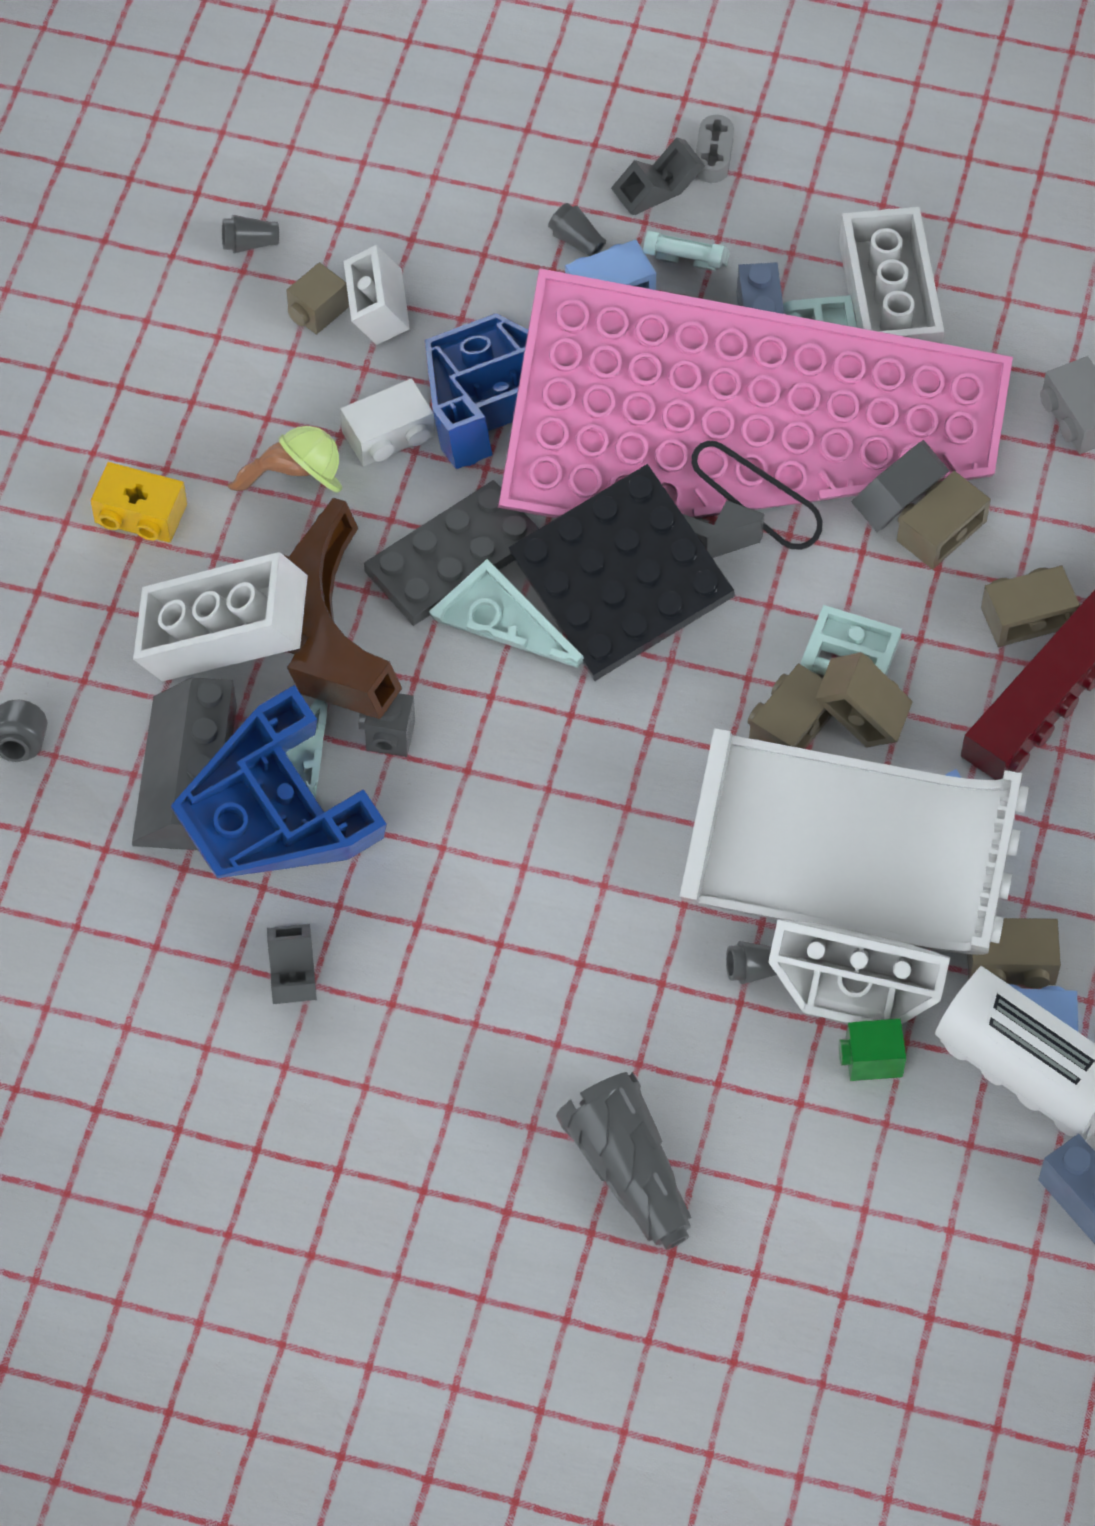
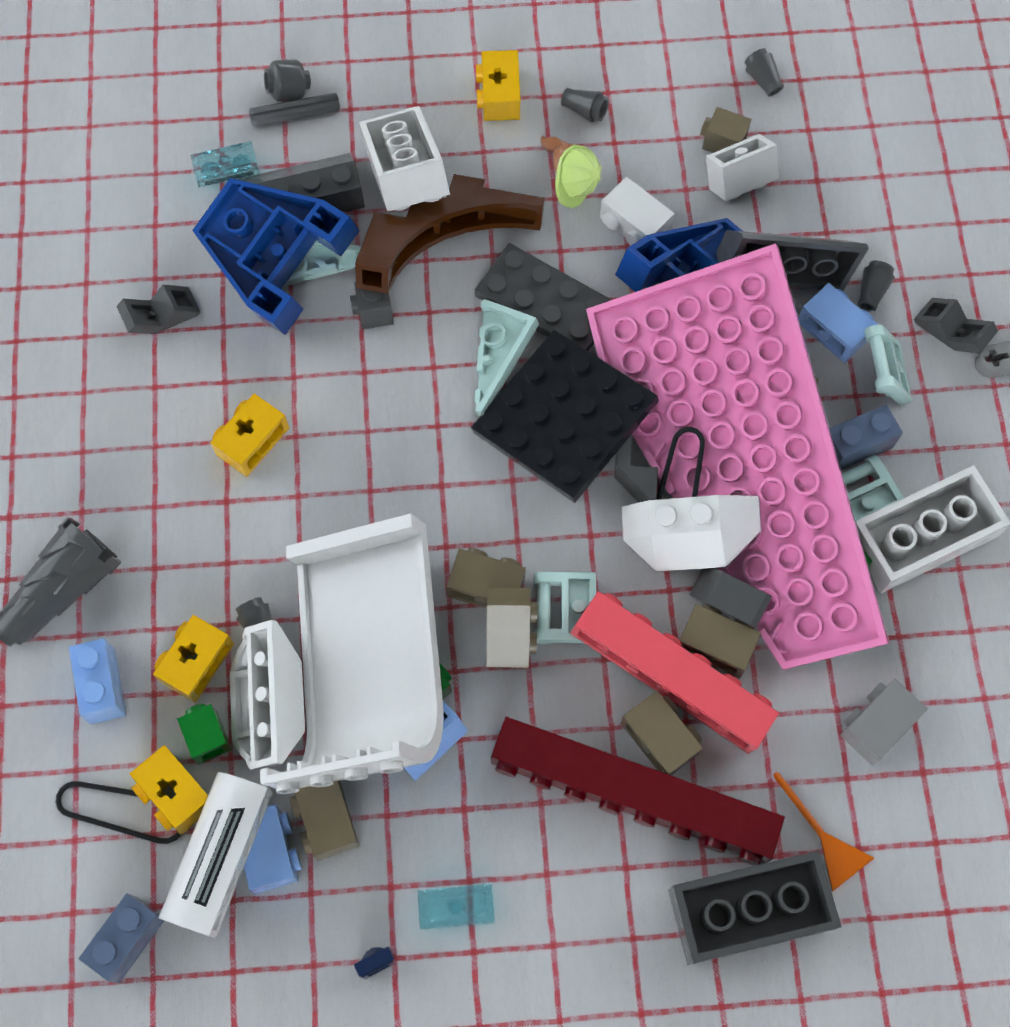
camera: 70 degrees right, 10 degrees up
(60, 739) = (294, 109): none -> dark grey axle
(109, 836) = (224, 163): none -> clear light blue plate
(206, 423) = (586, 103): none -> dark grey cone
(505, 311) = (806, 260): none -> dark grey slope
(510, 905) = (249, 434): none -> yellow brick
(771, 1145) = (97, 681): none -> light blue brick
(774, 1018) = (192, 676): none -> yellow brick
(813, 498) = (691, 530): none -> white wedge
(931, 1099) = (158, 773): none -> yellow brick
(961, 568) = (675, 672): none -> coral brick
(982, 1127) = (104, 824): none -> black piece

